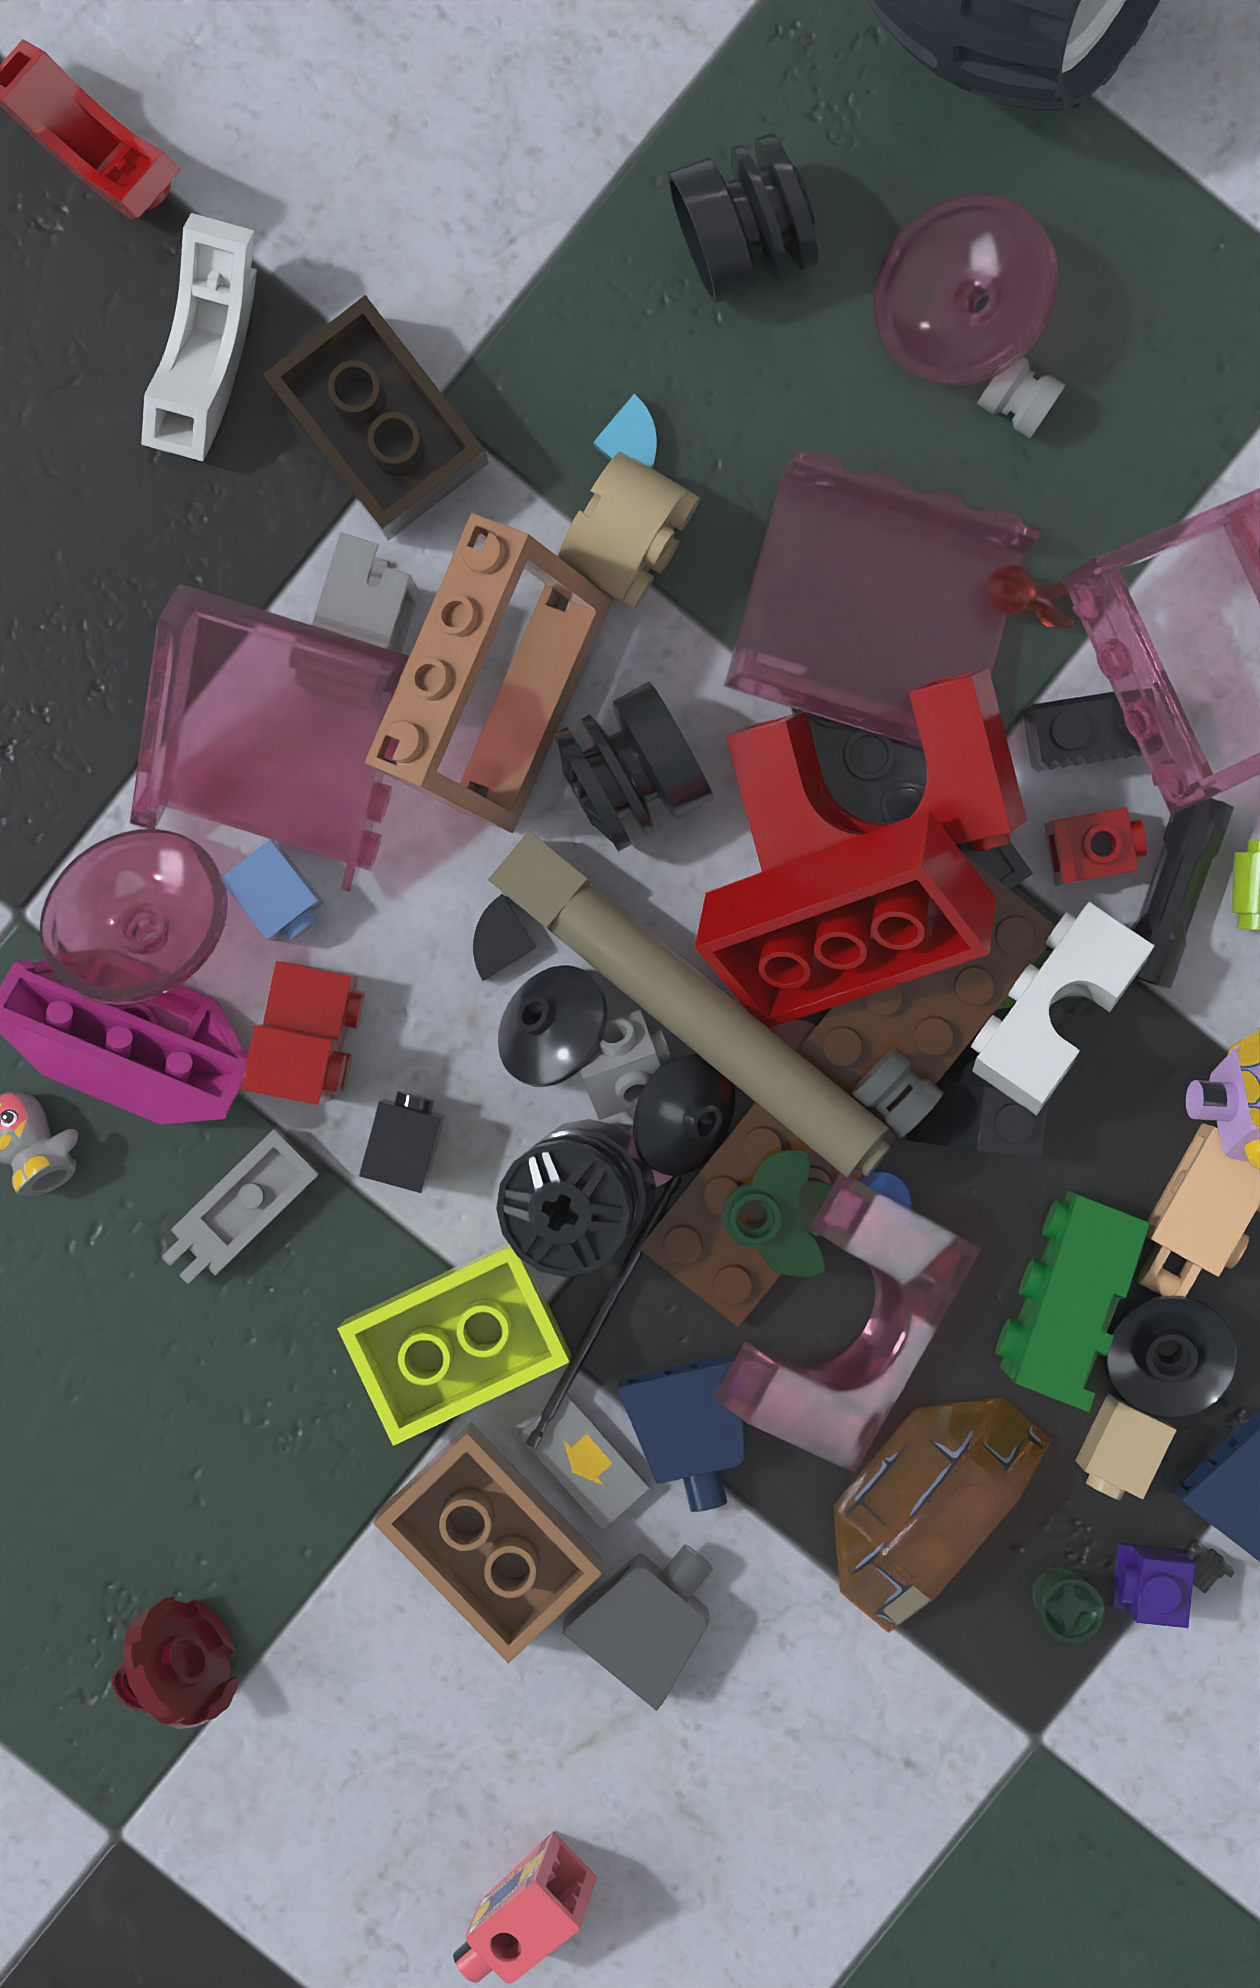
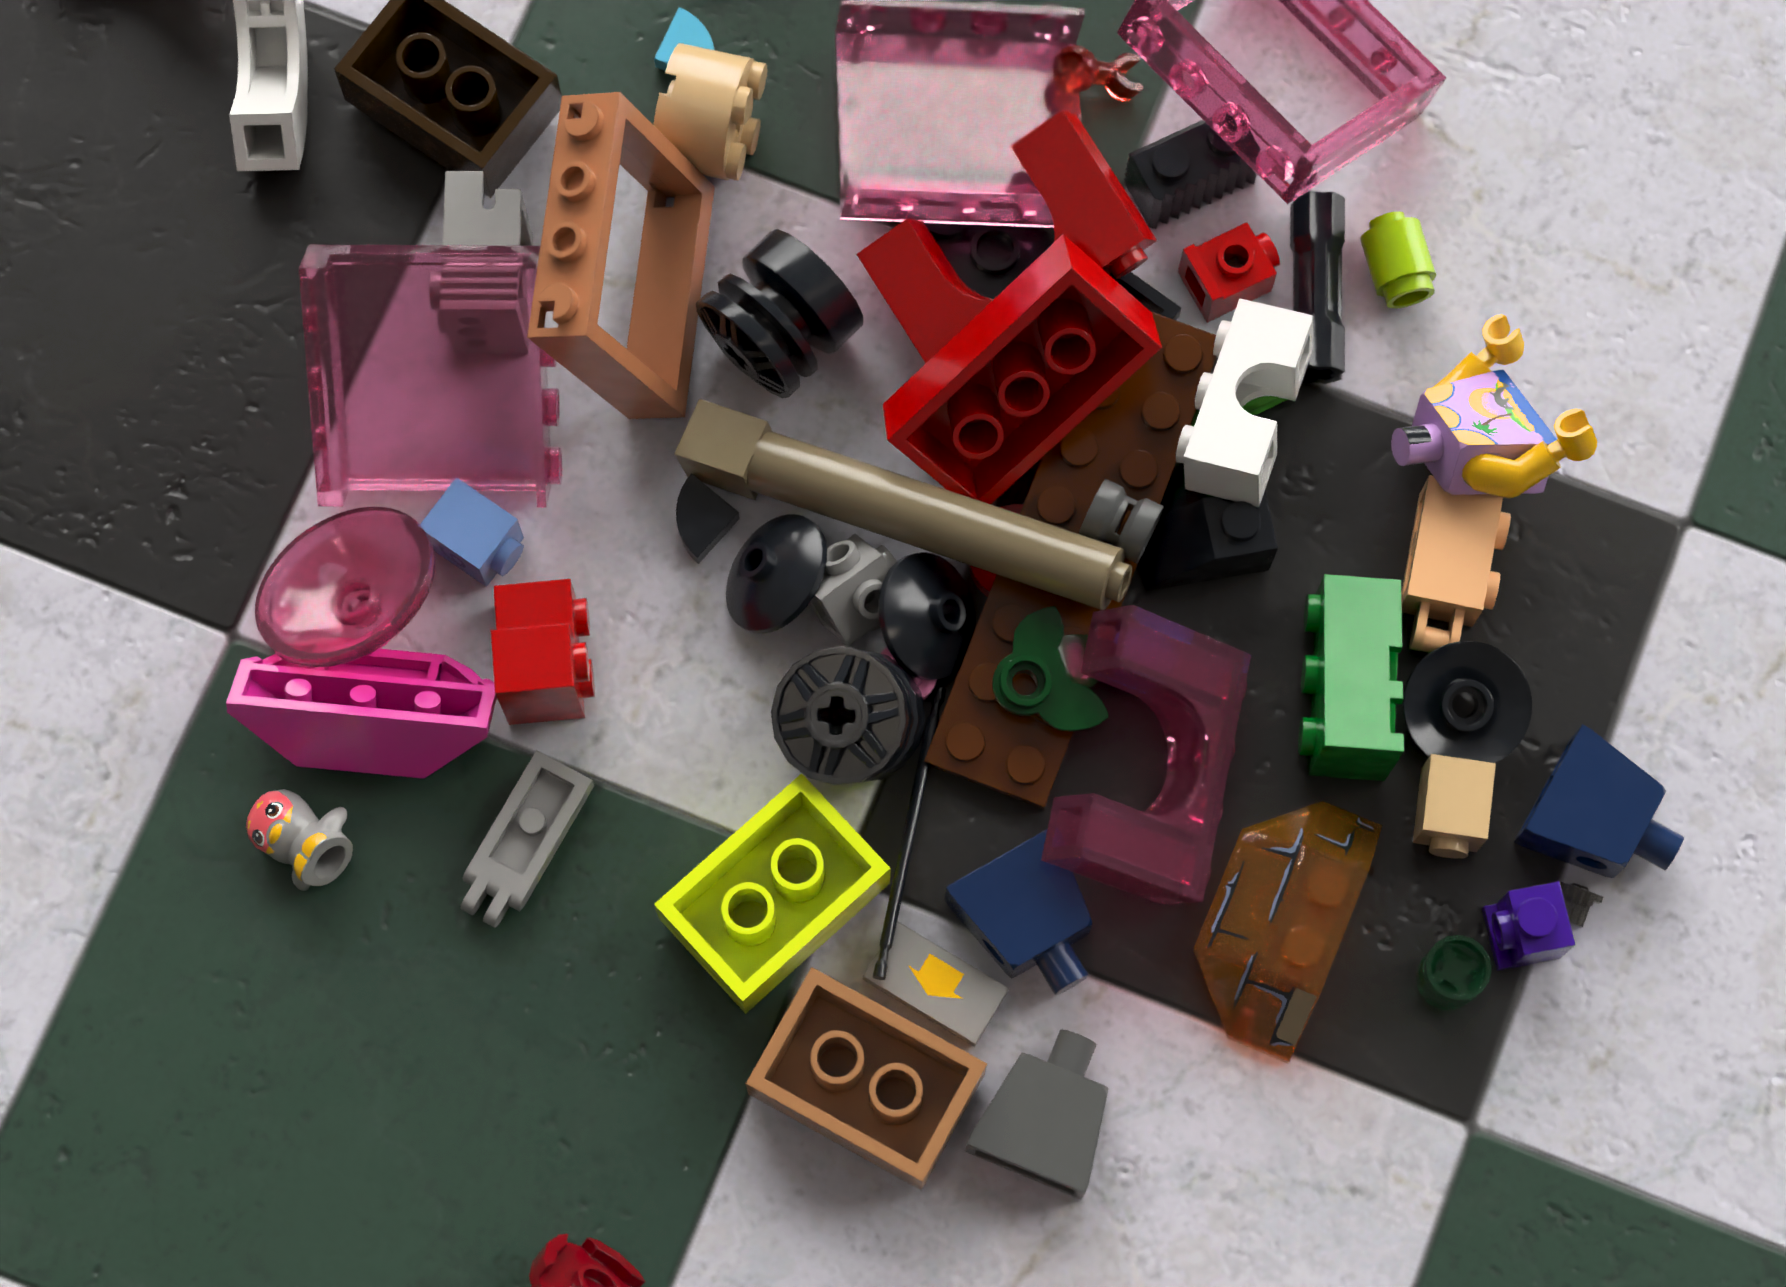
camera: 15 degrees left, 15 degrees down
(403, 1142) = (665, 723): black brick -> none

